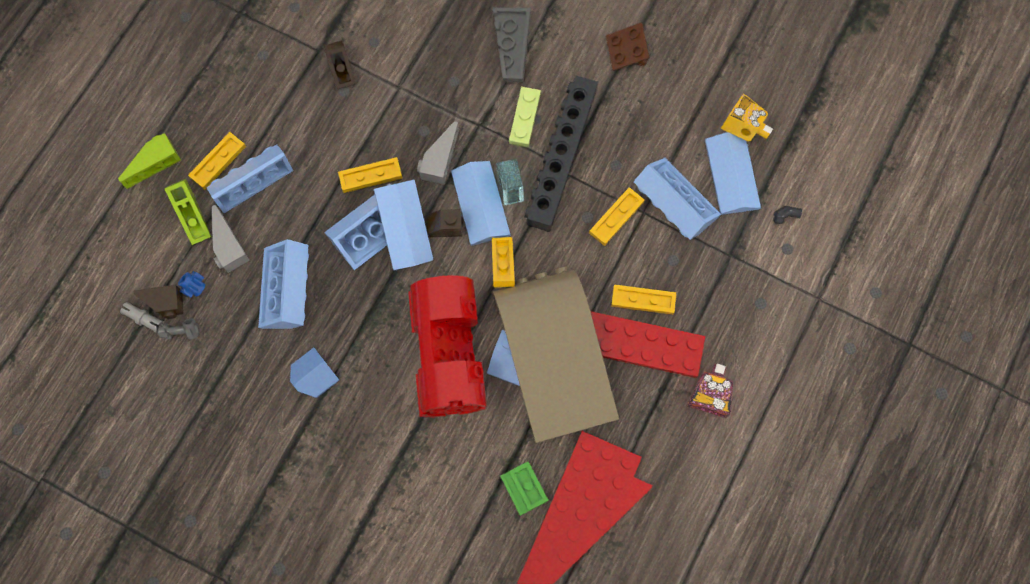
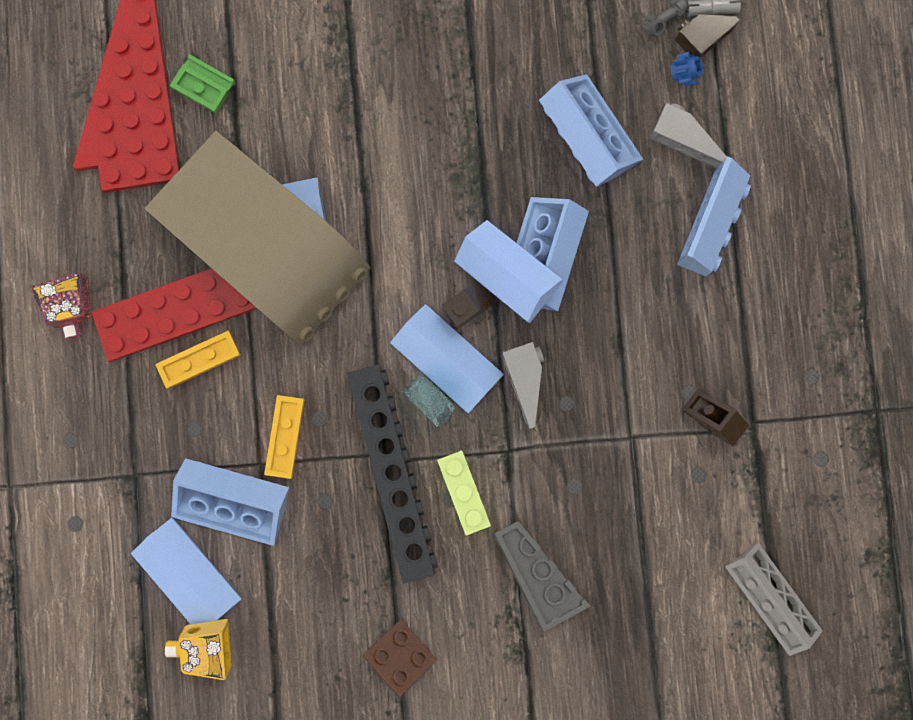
camera: 145 degrees right, 10 degrees up
(151, 159) = (836, 174): lime slope -> none
(188, 211) = (754, 143): lime slope -> none
(217, 160) = (765, 218): yellow plate -> none
(312, 374) = (496, 62): medium blue slope -> none
(370, 175) = (587, 309): yellow plate -> none
(442, 316) = (350, 140): red cylinder -> none
(503, 262) = (372, 298): yellow plate -> none
(784, 212) = (99, 563): black arm -> none

